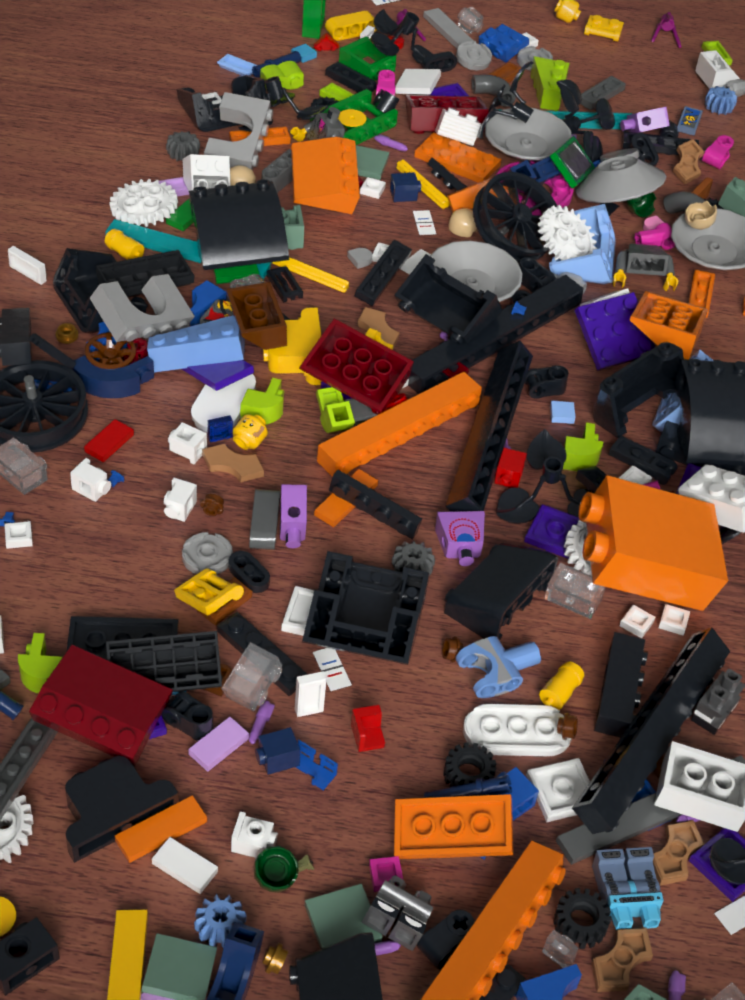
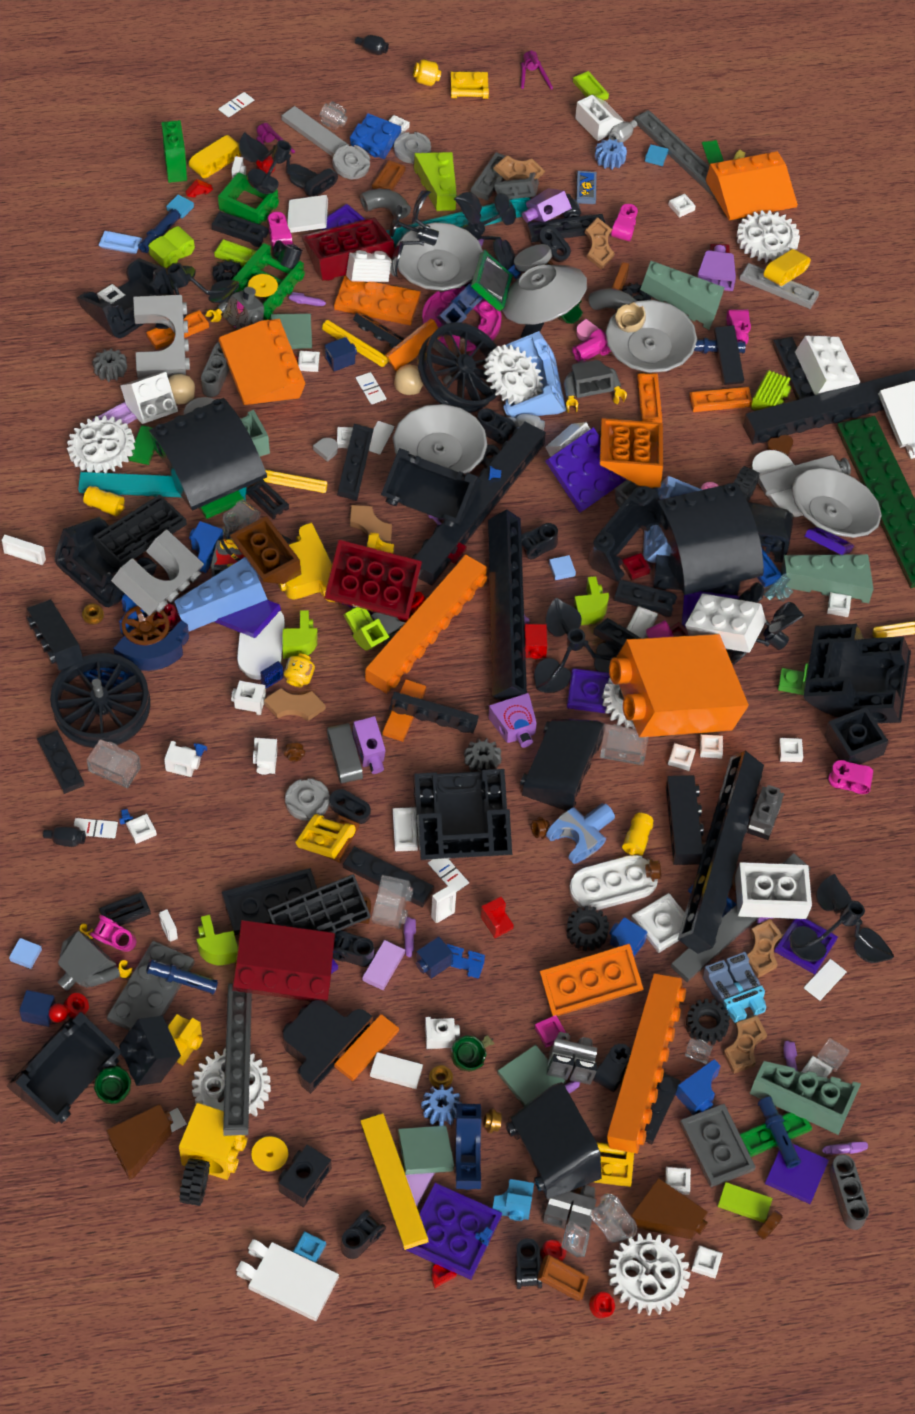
camera: 15 degrees left, 10 degrees up
(52, 351) = (99, 644): black tile -> none
(109, 440) = (178, 714): red tile -> none
(234, 880) = (440, 1071): none -> pearl gold plate
(481, 787) = (600, 945): dark blue pin -> none
(623, 90) = (514, 169): none -> medium nougat tile
(624, 102) = (517, 188): none -> dark grey hinge
(642, 430) = (636, 566): none -> dark red tile

